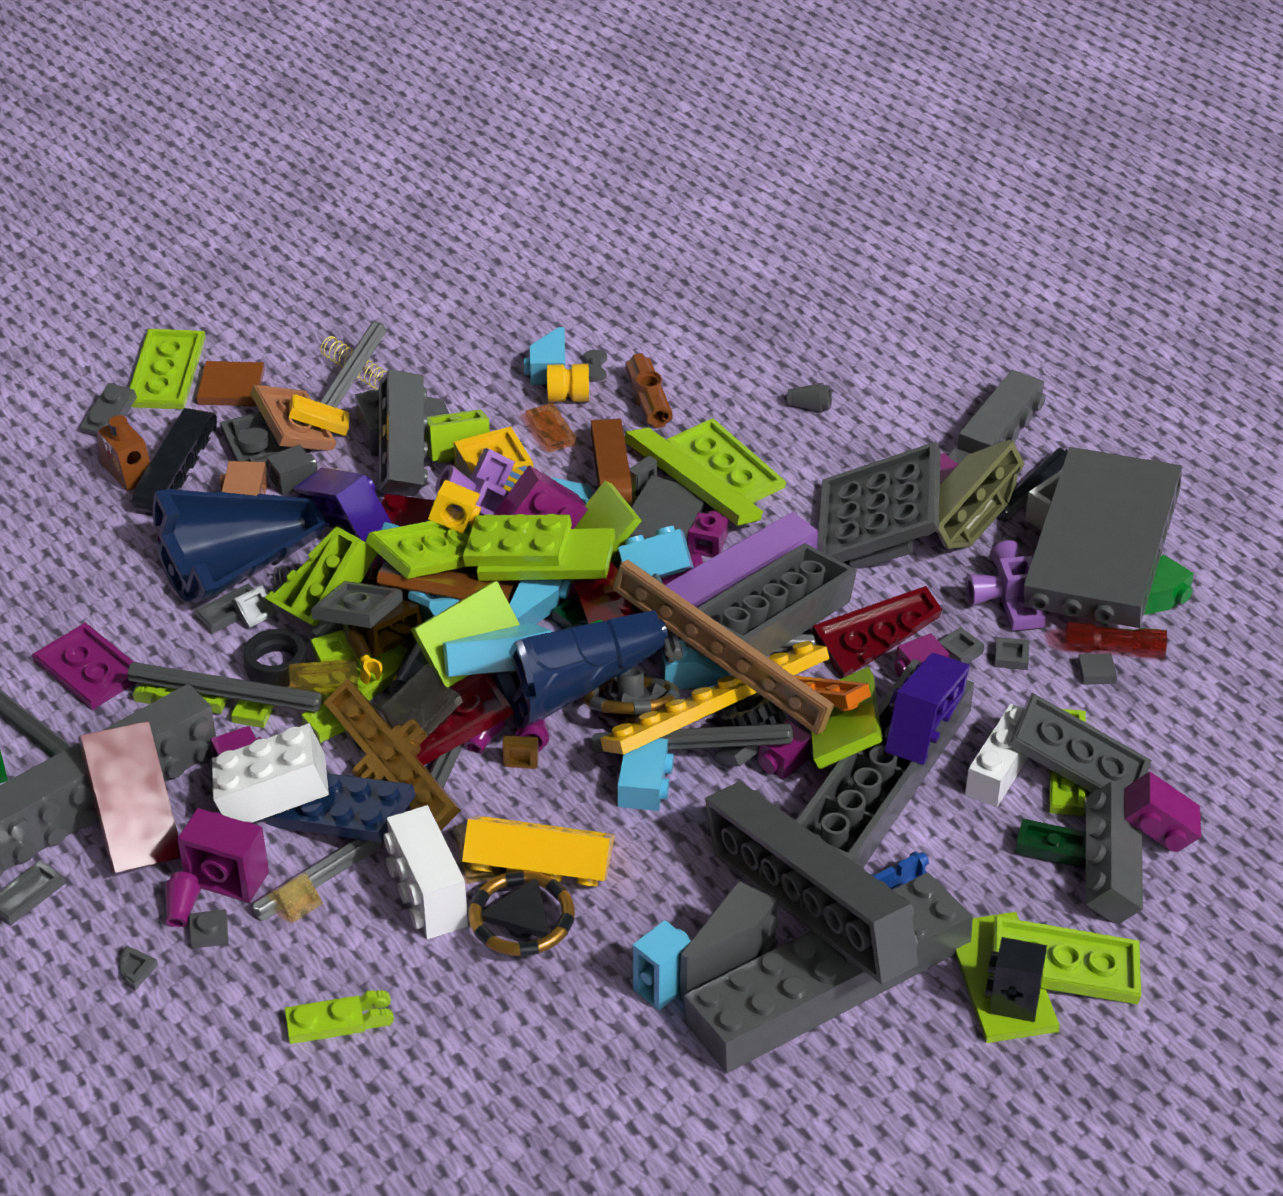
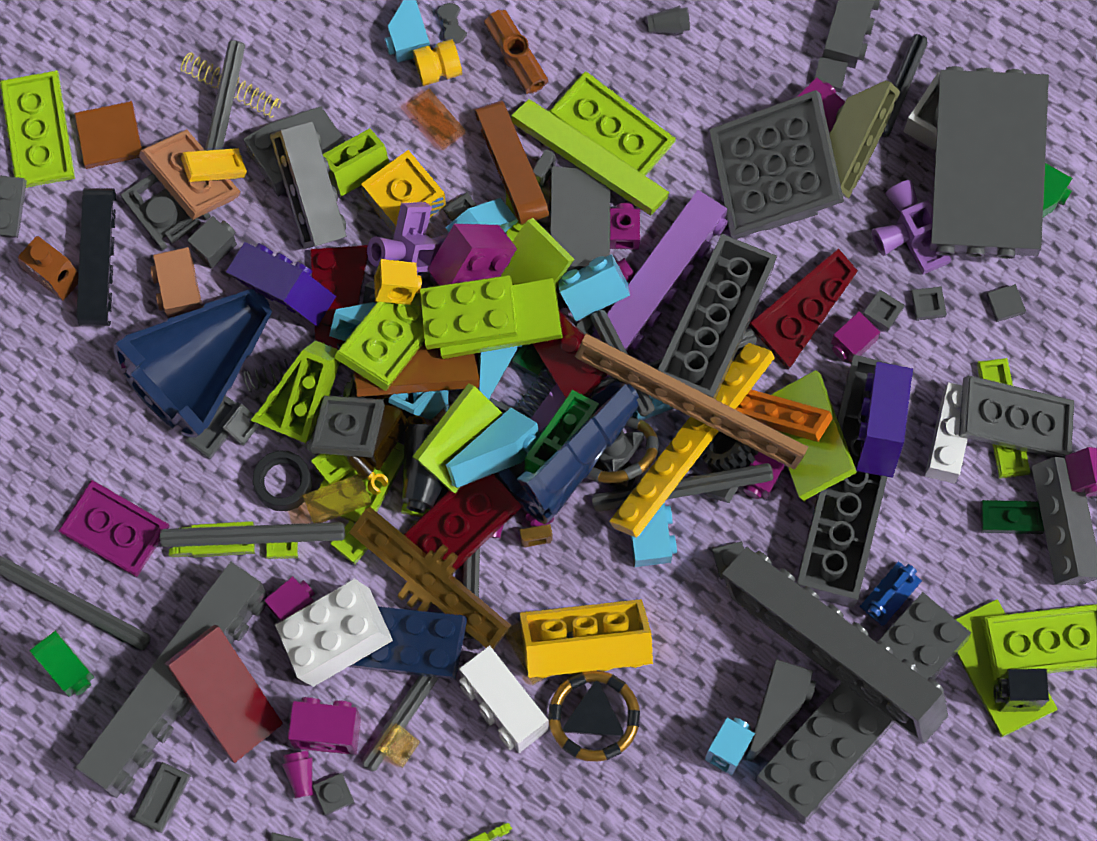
camera: 15 degrees left, 30 degrees up
(422, 700) = (441, 521): clear smoke panel -> none
(1141, 641) = (995, 270): clear red axle -> none

